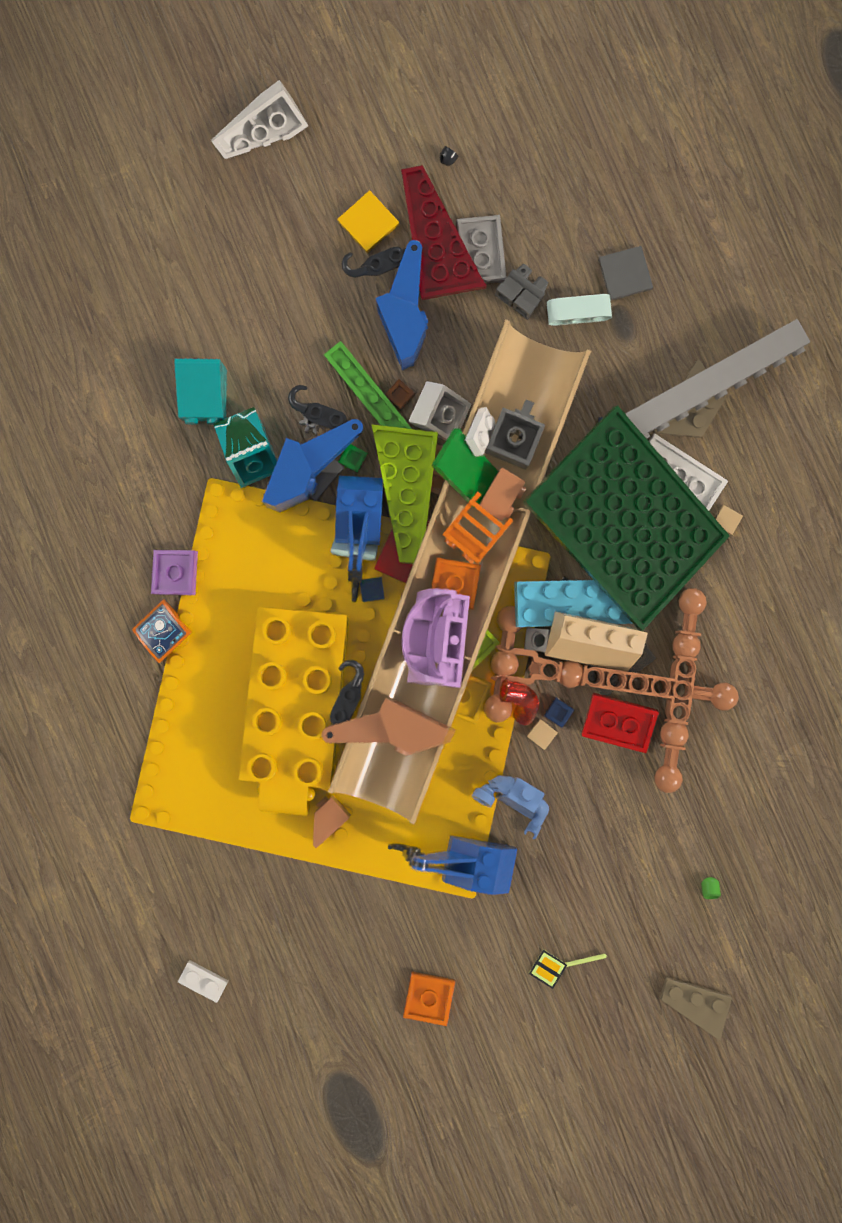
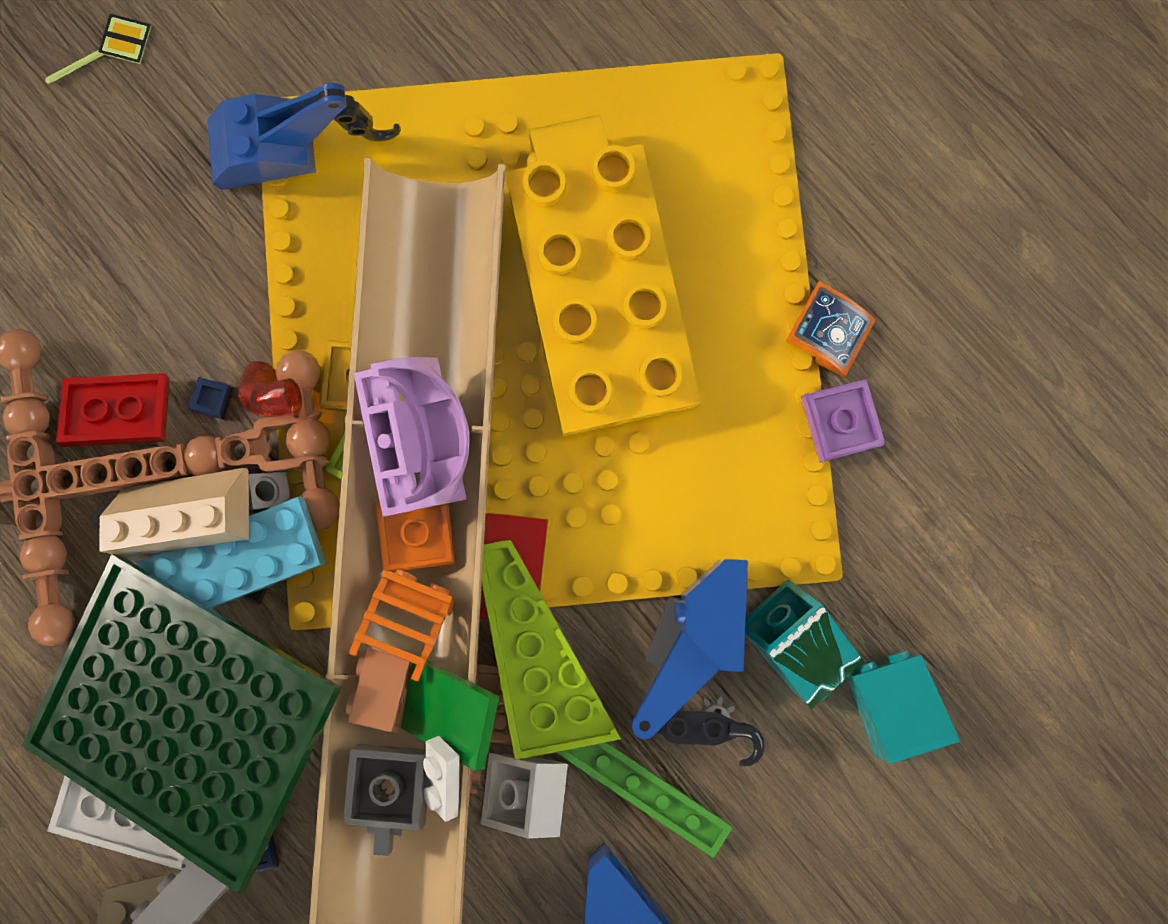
camera: 160 degrees right, 5 degrees down
(328, 819) = (496, 137): nougat slope -> none
(341, 549) = (586, 540): light aqua slope -> none
(353, 458) = (634, 679): green tile -> none
(358, 520) = (593, 586): blue slope -> none
(372, 589) = (541, 488): tile -> none
(394, 724) = (425, 288): nougat slope -> none
(399, 394) = (595, 802): reddish brown tile -> none
(518, 796) = (234, 257): medium blue torso -> none
(542, 734) = (226, 359): tan tile -> none
(728, 519) = (31, 771): tan tile -> none

